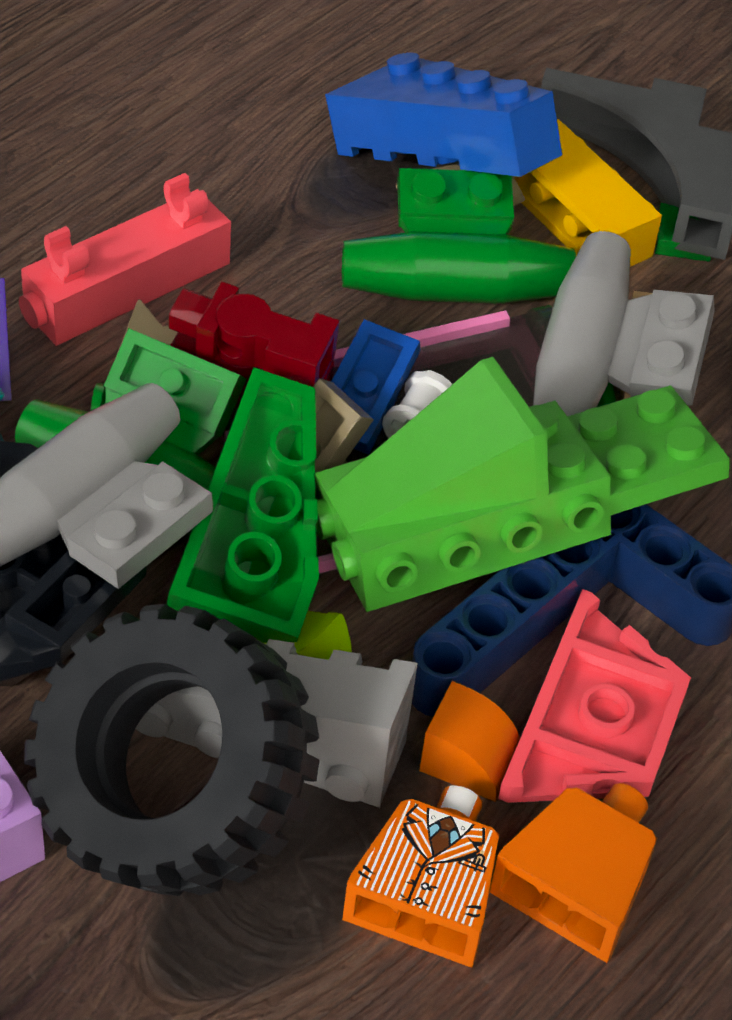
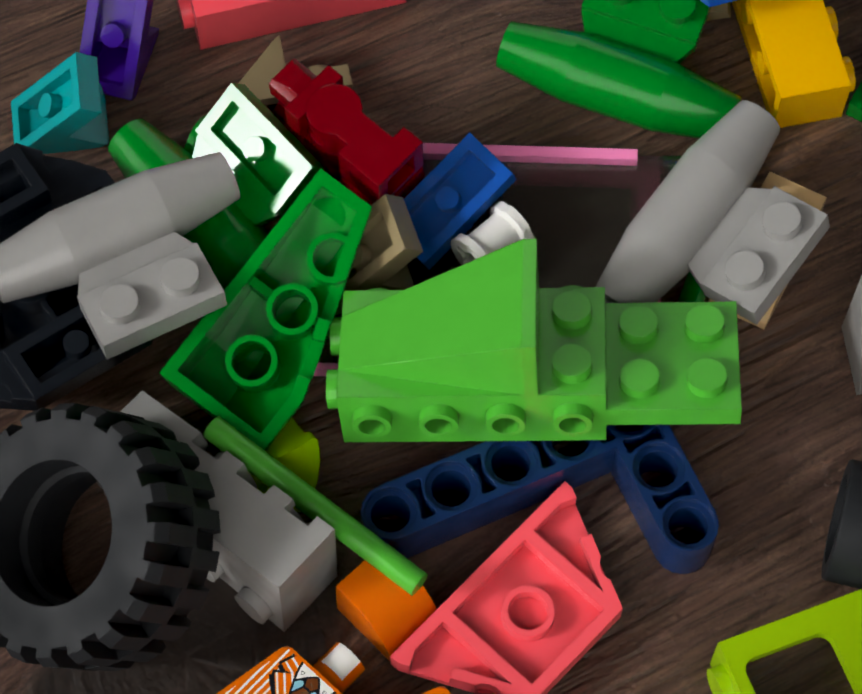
camera: 25 degrees right, 15 degrees up
(427, 680) = (314, 504): none -> bright green bar

